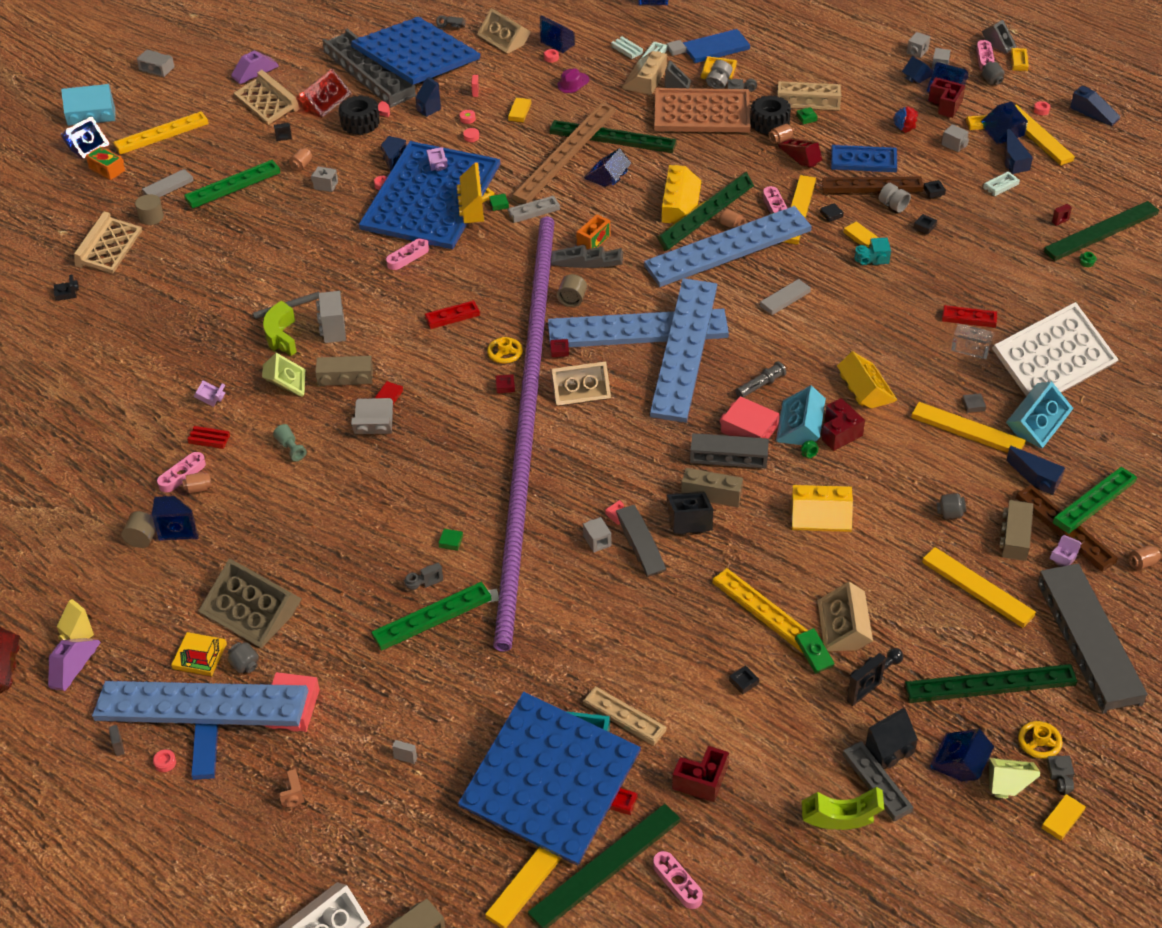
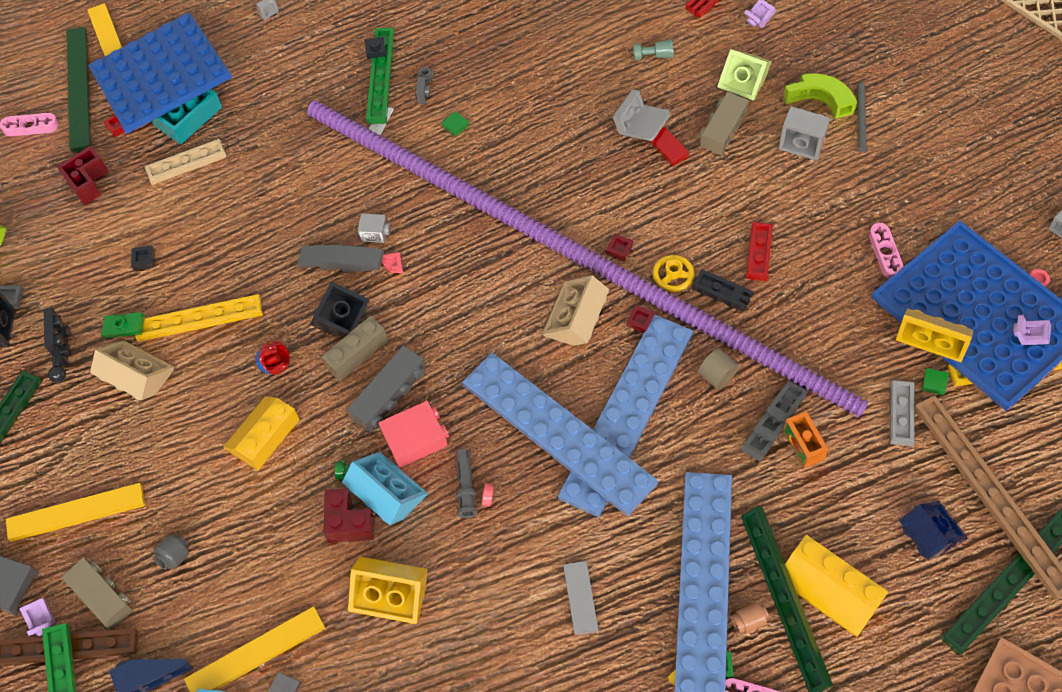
camera: 125 degrees right, 15 degrees up
(406, 627) = (375, 47): none -> black plate
(502, 318) = (722, 290): none -> black hinge
(758, 364) = (487, 494): none -> coral tile
(762, 530) = (273, 358): none -> red piece

